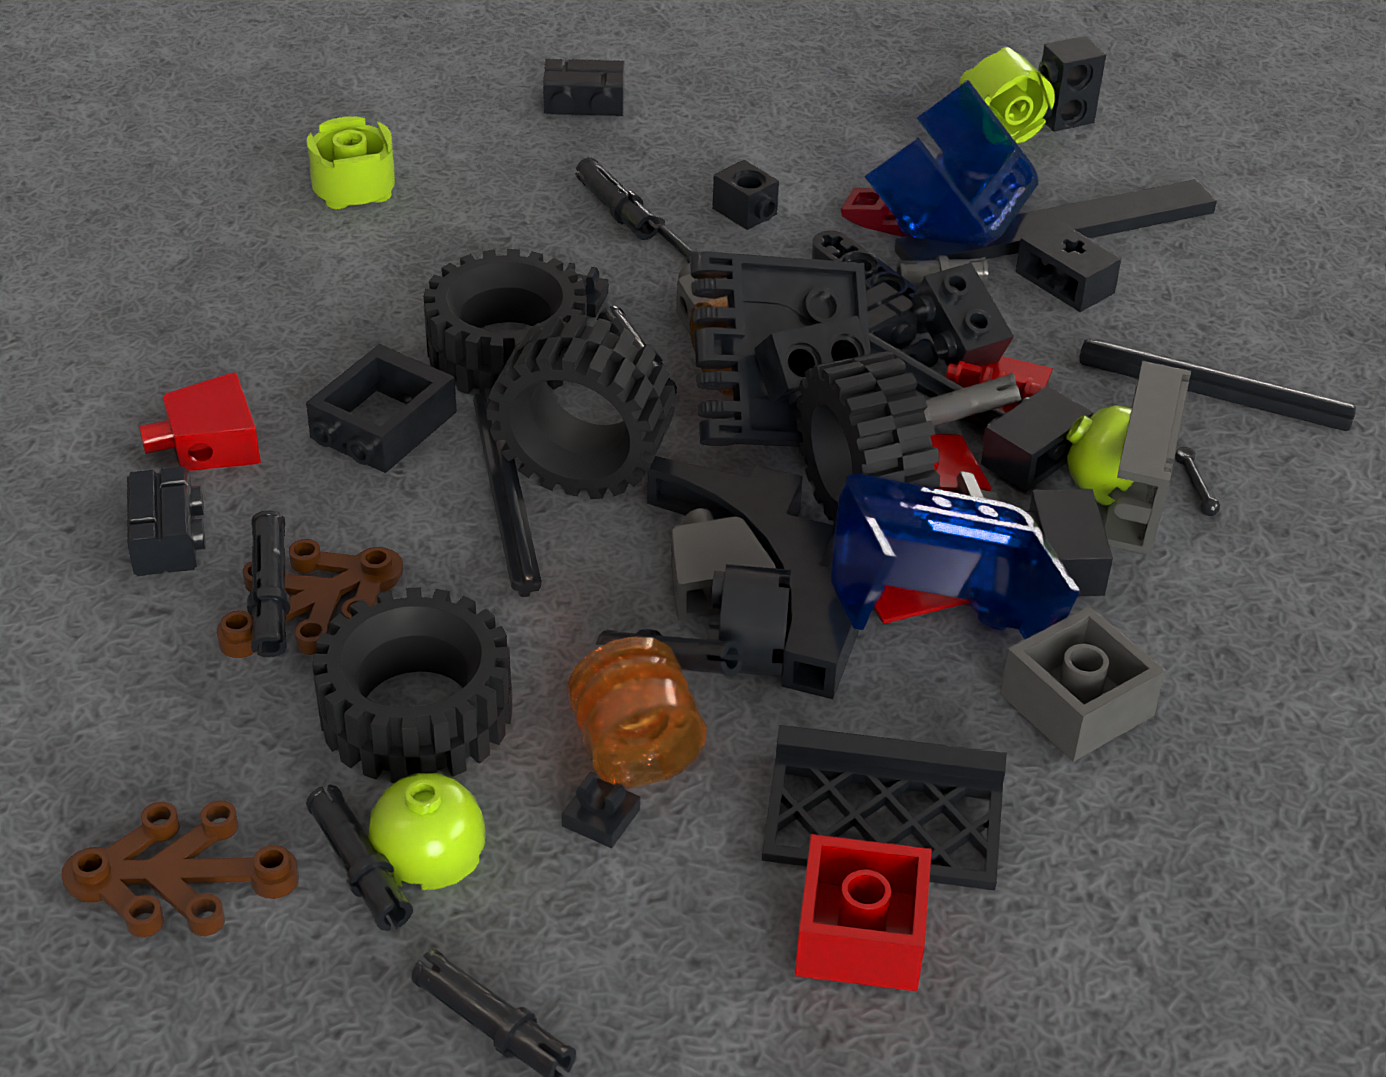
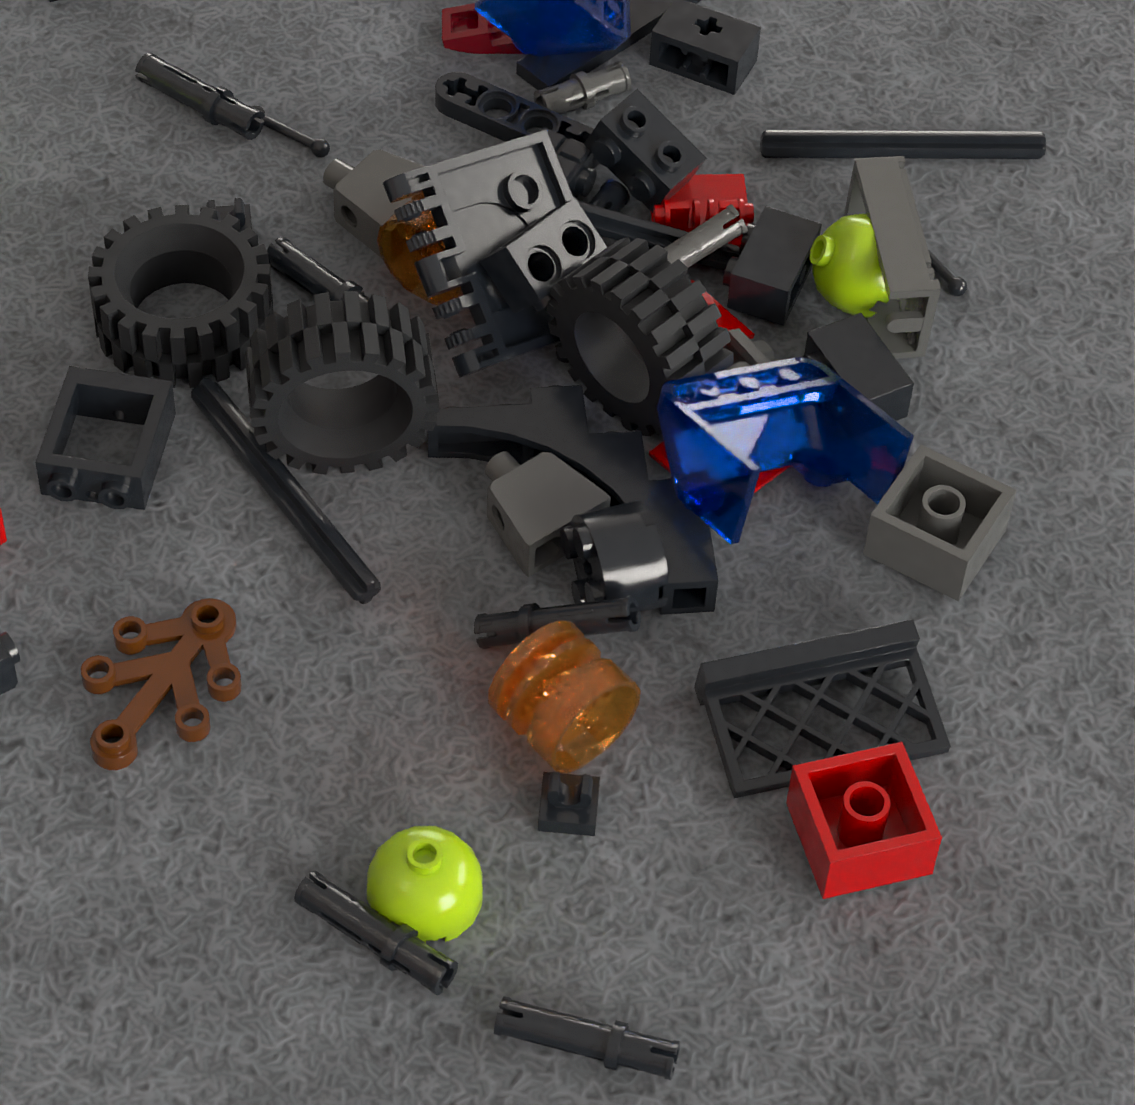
camera: 25 degrees left, 10 degrees up
(174, 868) = (209, 1014): reddish brown plant -> none
(268, 600) = (133, 699): black pin -> none
(408, 638) = (322, 684): black tyre -> none
(745, 194) = (337, 53): black brick -> none

